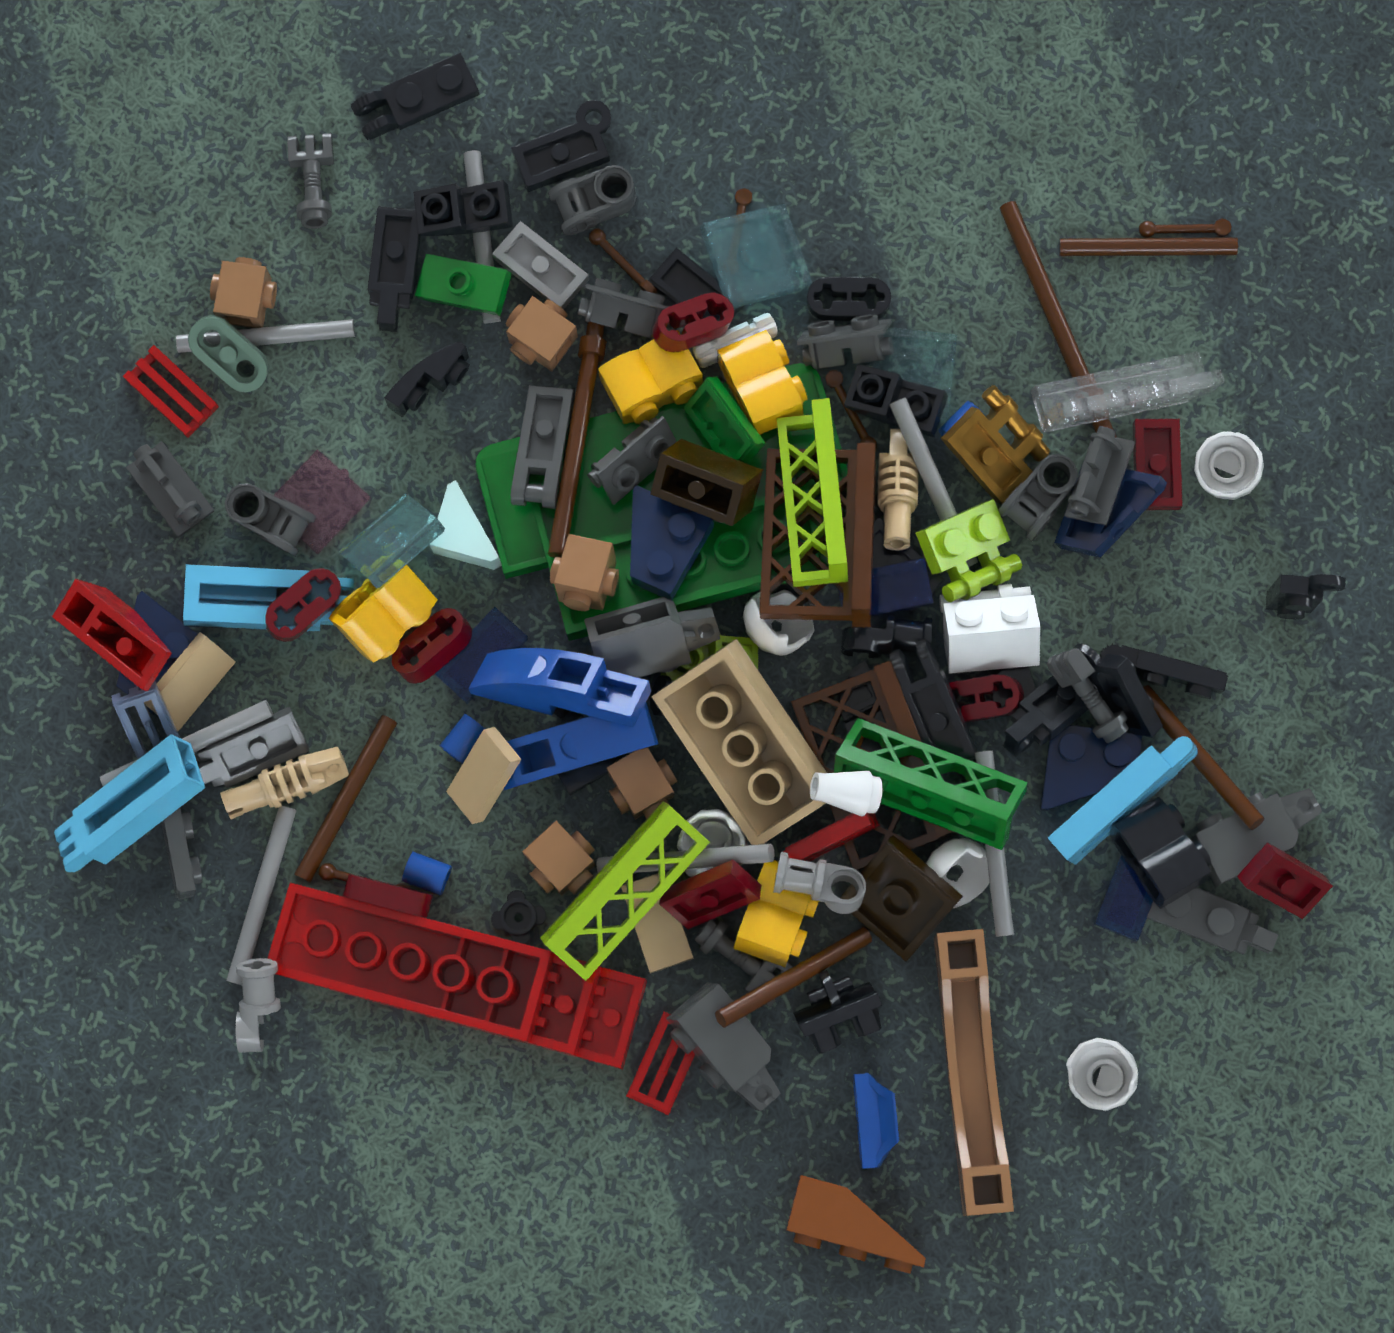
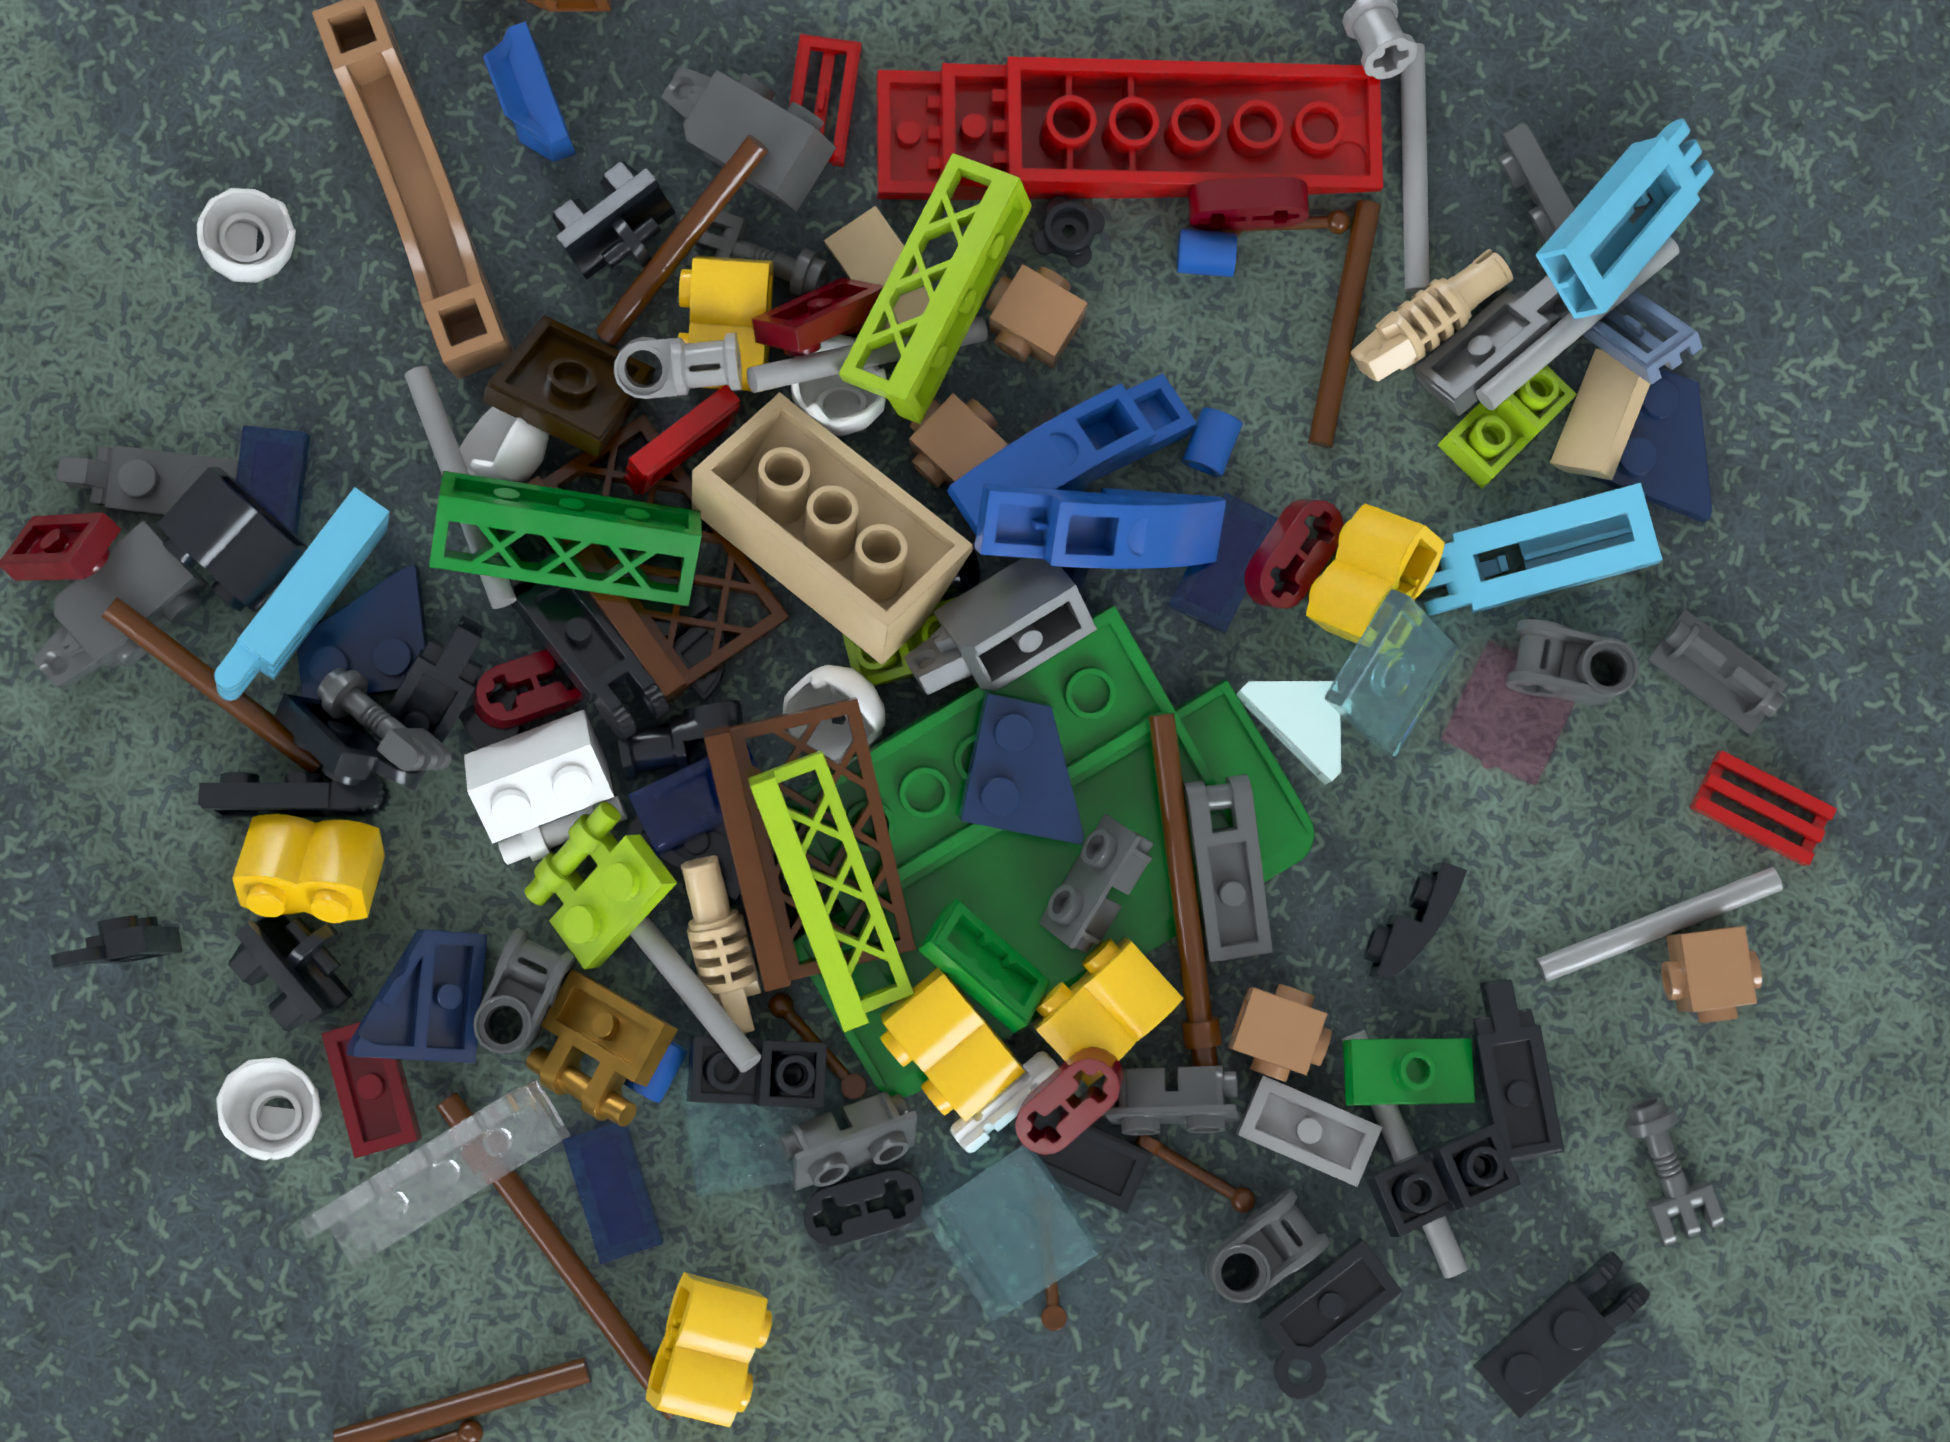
camera: 160 degrees right, 5 degrees up
(113, 632) = (1728, 437): red slope -> none
(226, 355) = (1704, 875): sand green plate -> none
(275, 683) = (1491, 439): none -> lime slope
(295, 597) = (1472, 541): dark red beam -> none
(483, 775) = (1169, 391): tan tile -> none
(585, 573) = (1113, 690): medium nougat brick -> none
(706, 482) = (983, 866): dark brown brick -> none
(850, 791) = (665, 486): white cone -> none
(976, 233) = (708, 1350): none -> yellow brick
(1013, 352) = (613, 1191): none -> clear blue tile
(1100, 477) = (441, 1035): dark grey hinge -> none
(1163, 615) = (309, 867): none -> yellow brick
(1188, 557) = (296, 963): none -> black hips

